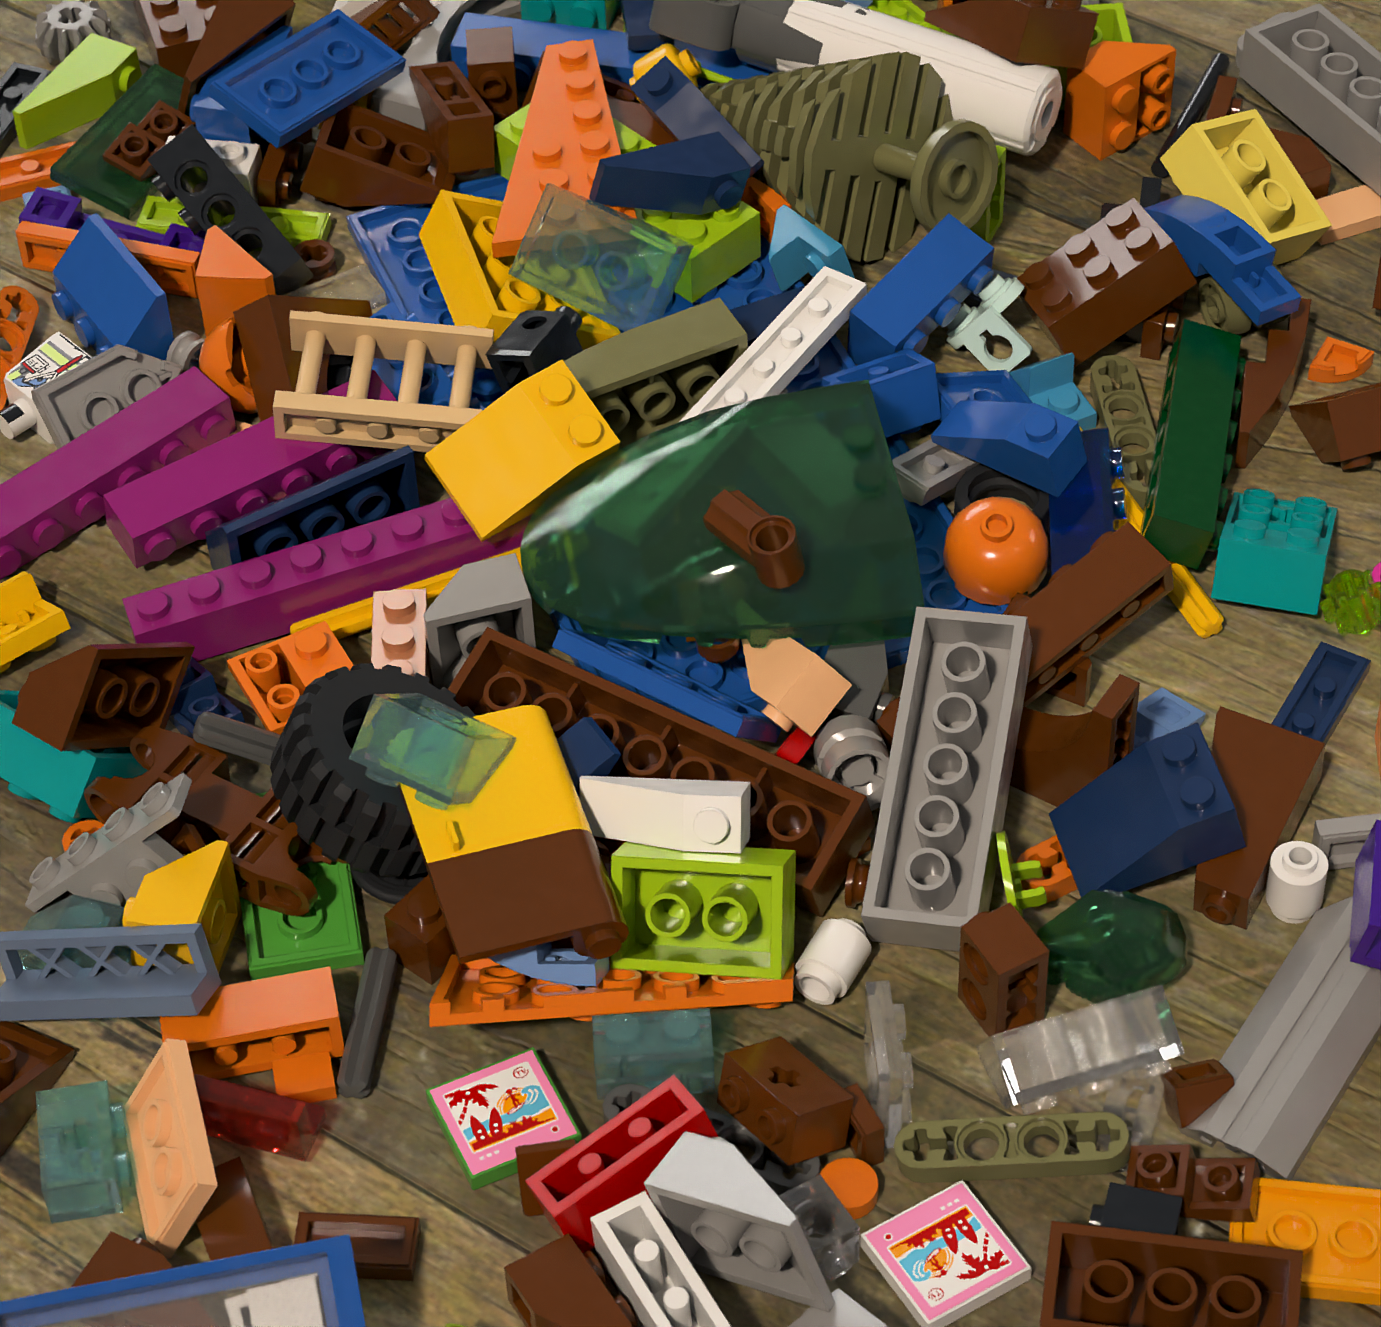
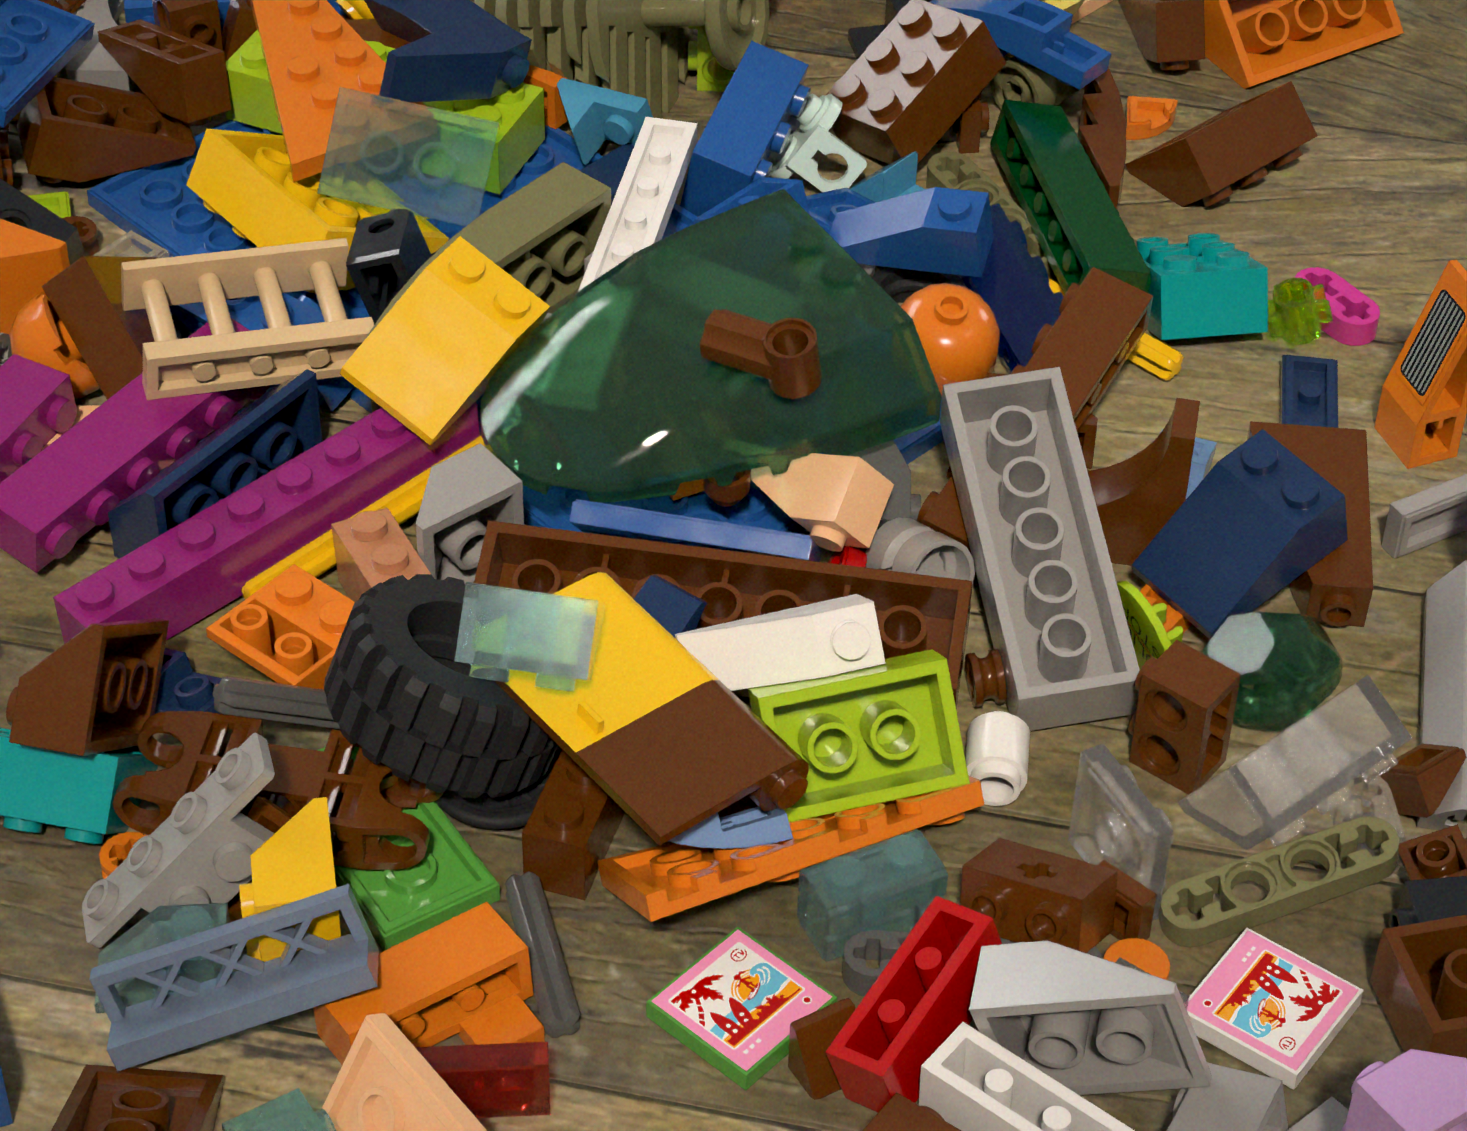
camera: 25 degrees left, 5 degrees down
(1296, 881) = (1400, 564): white brick -> none

